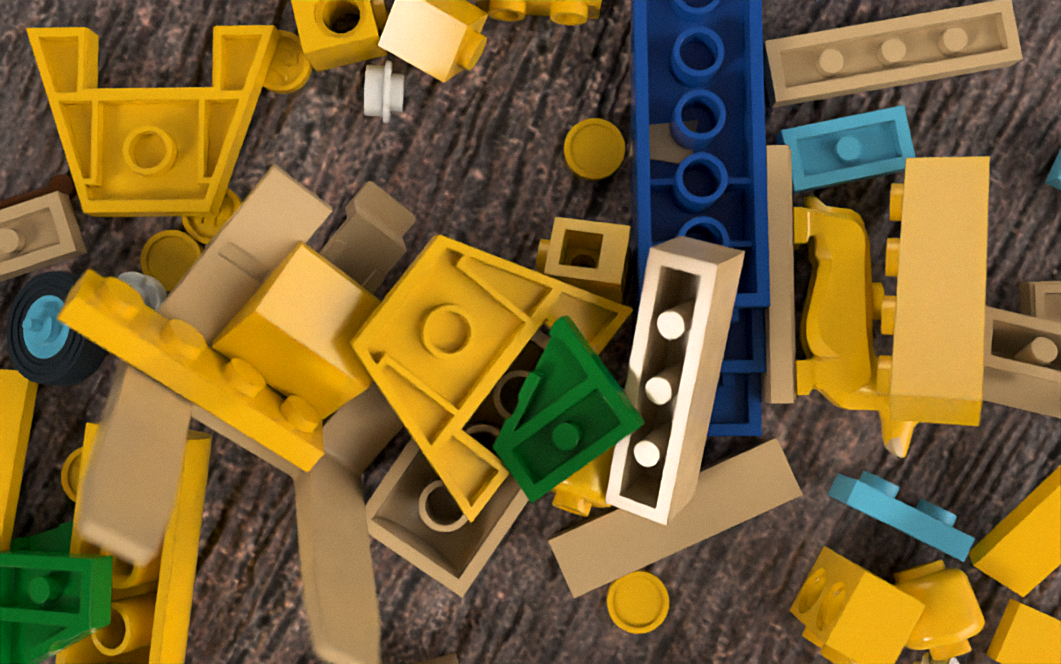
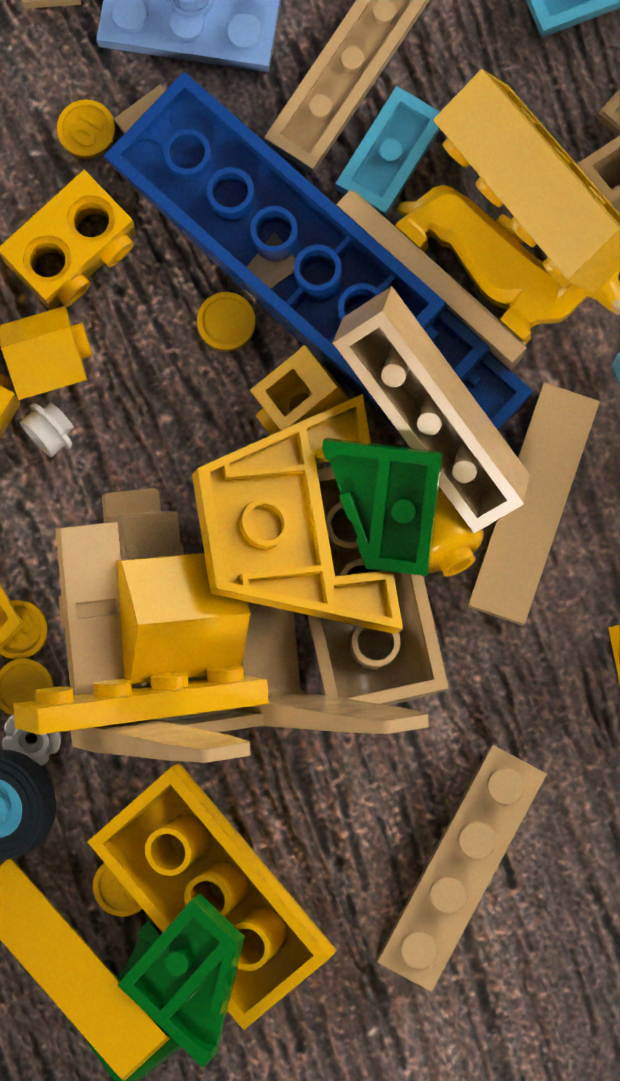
camera: 45 degrees left, 5 degrees down
(637, 602) = (570, 585): yellow piece -> none

